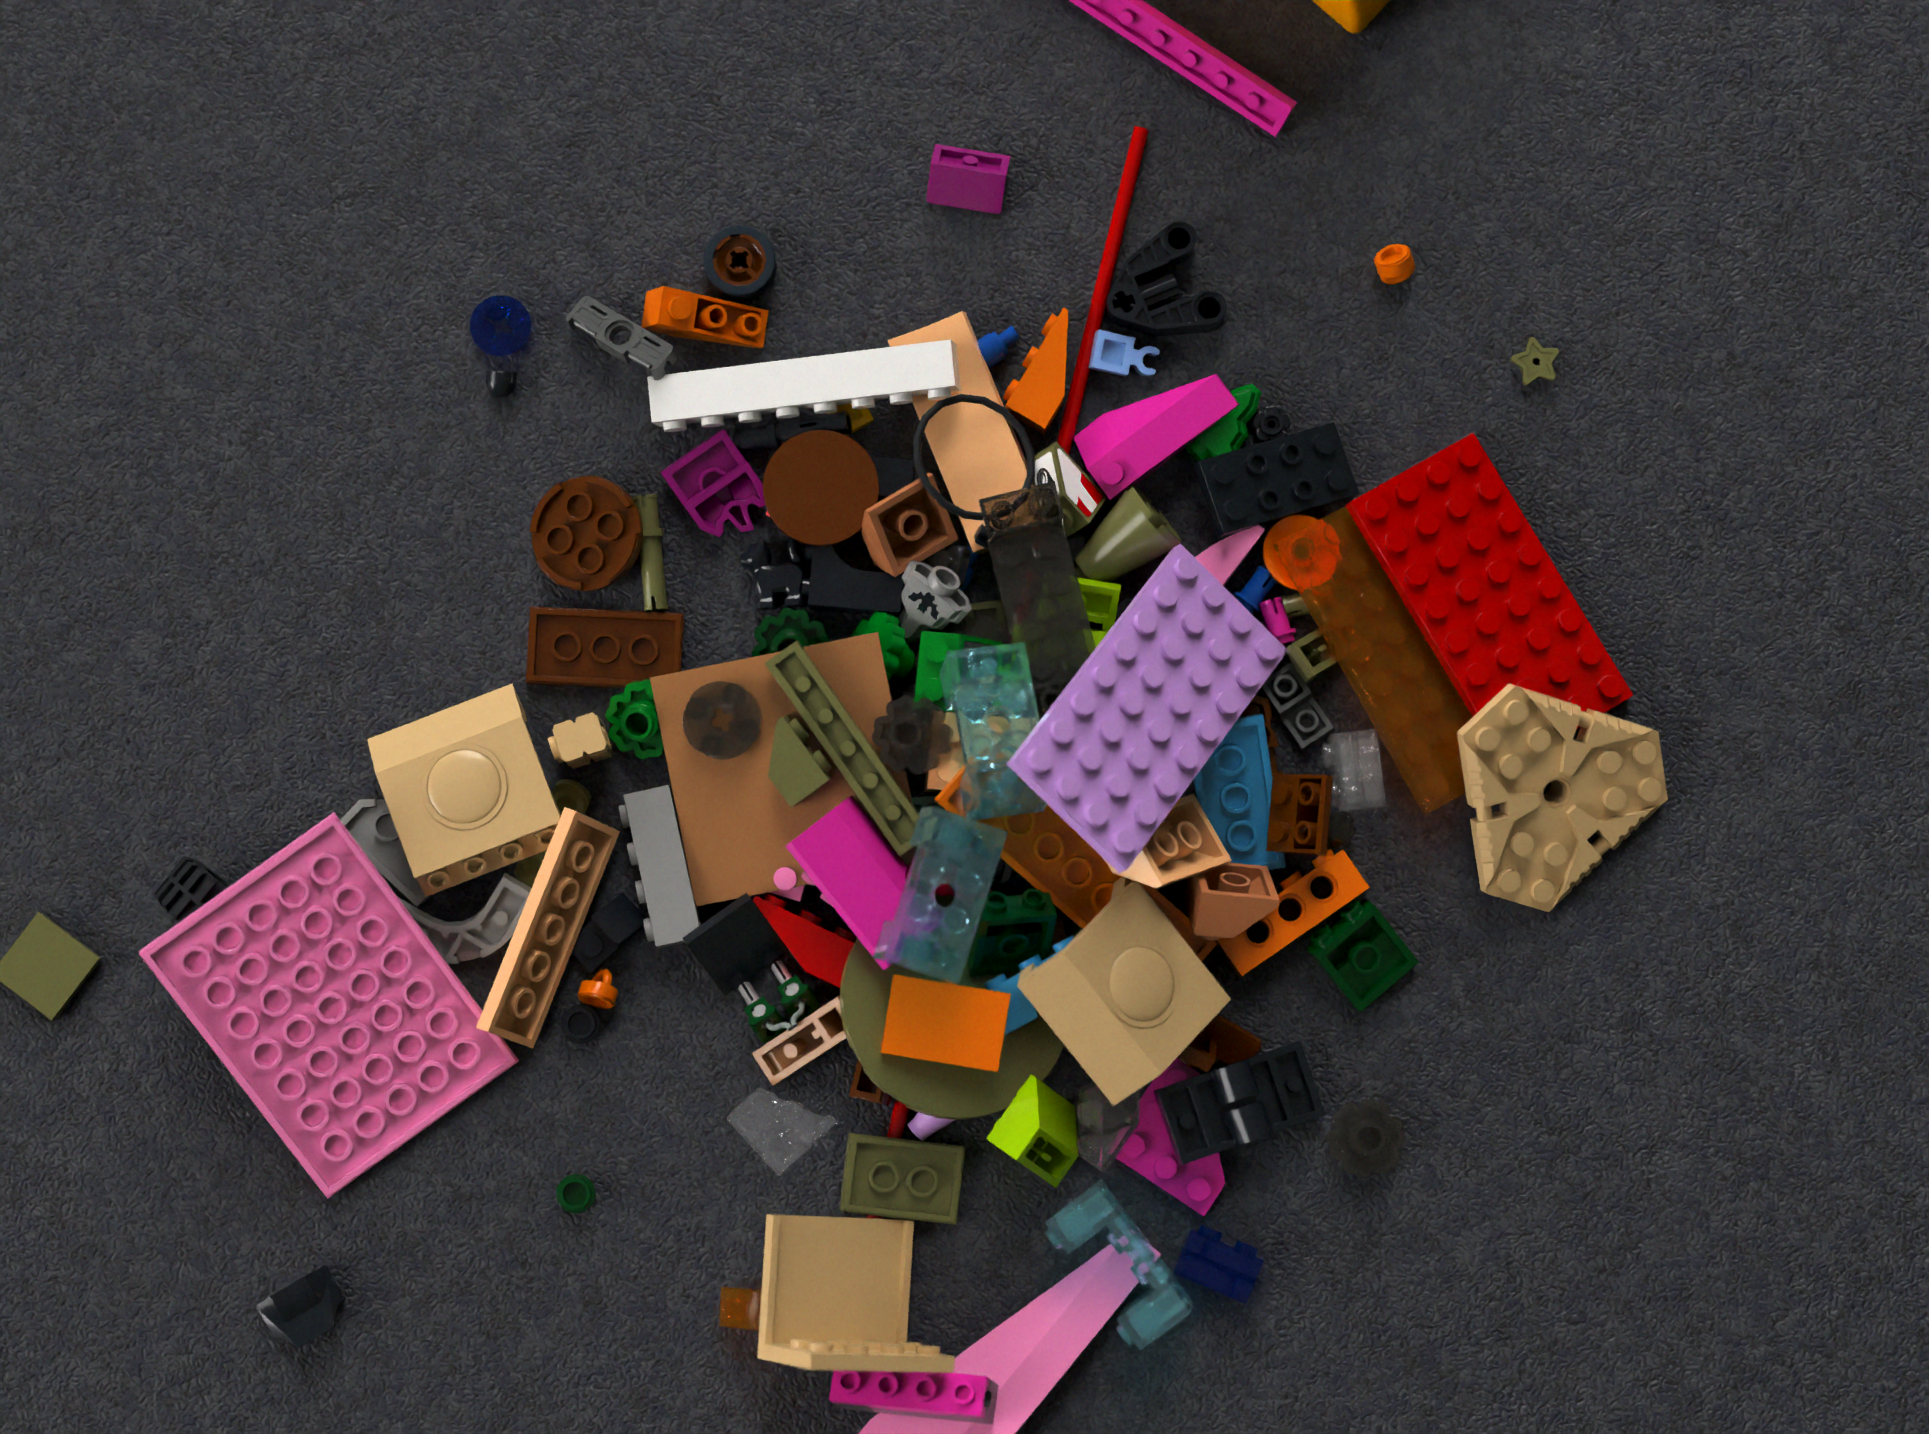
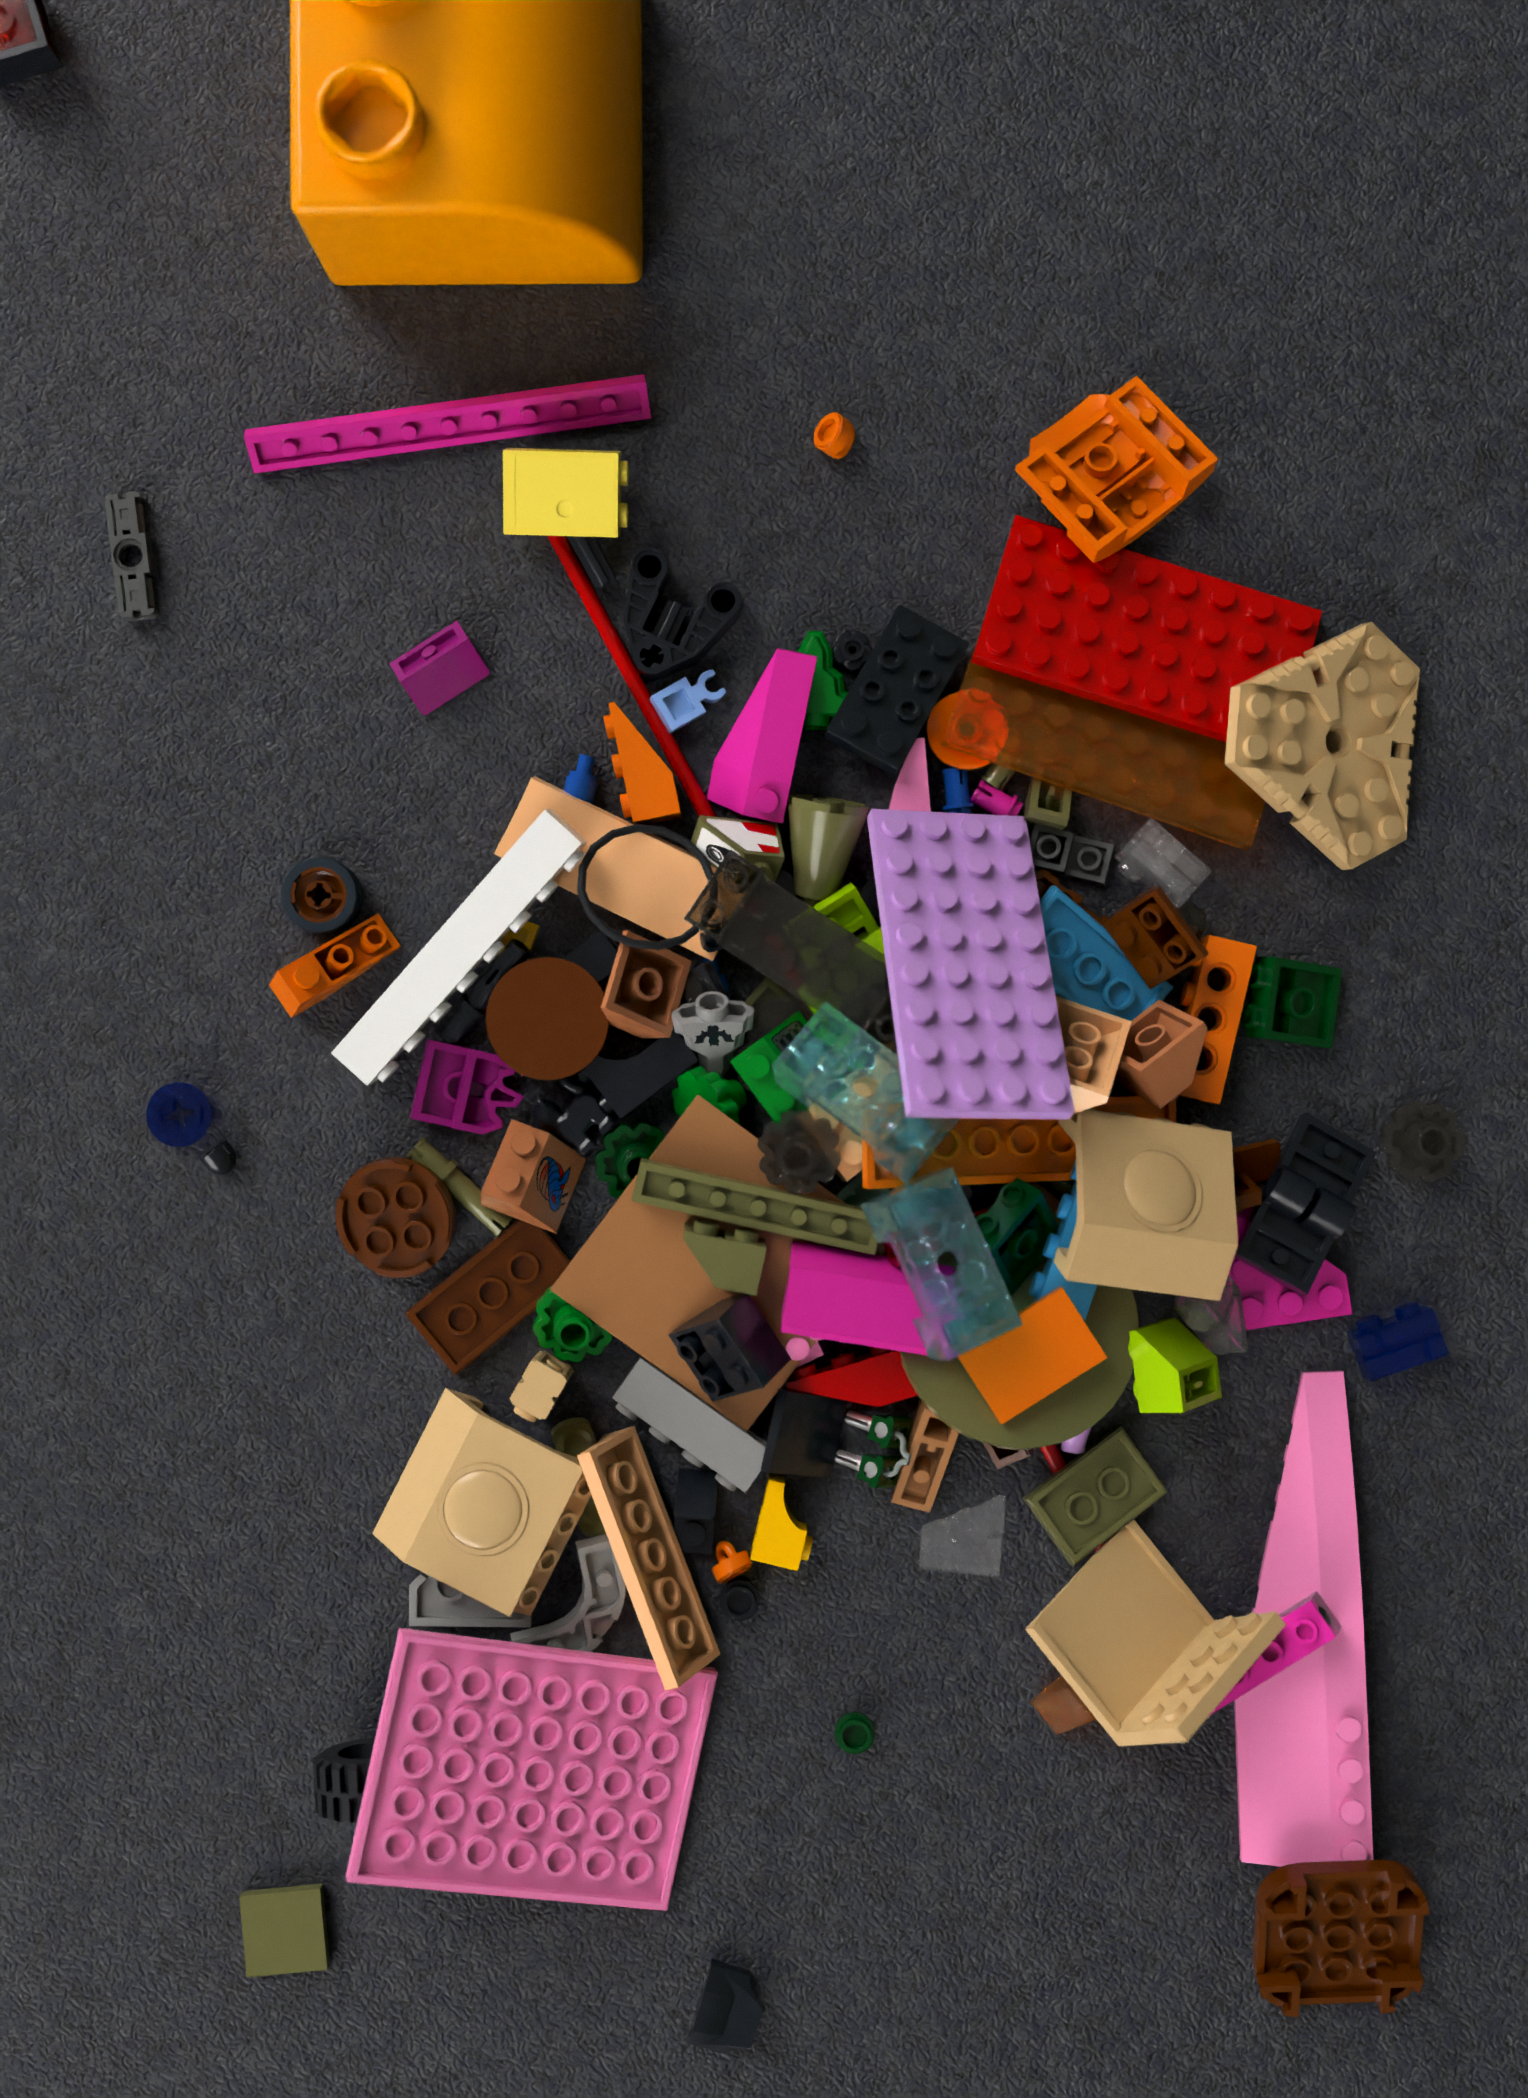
camera: 40 degrees left, 5 degrees up
(605, 323) = (259, 1040): dark grey piece -> none
(651, 999) = (778, 1534): none -> yellow arch
(702, 709) = (647, 1295): clear smoke plate -> none
(708, 590) = (532, 1177): none -> nougat slope
(739, 831) = (730, 1348): none -> black slope
(1156, 1308) = (1384, 1412): clear light blue plate -> none
(1165, 139) = (567, 496): none -> light yellow piece
(1535, 351) = (1008, 425): olive plate -> none
(1572, 462) = (1115, 467): none -> orange slope

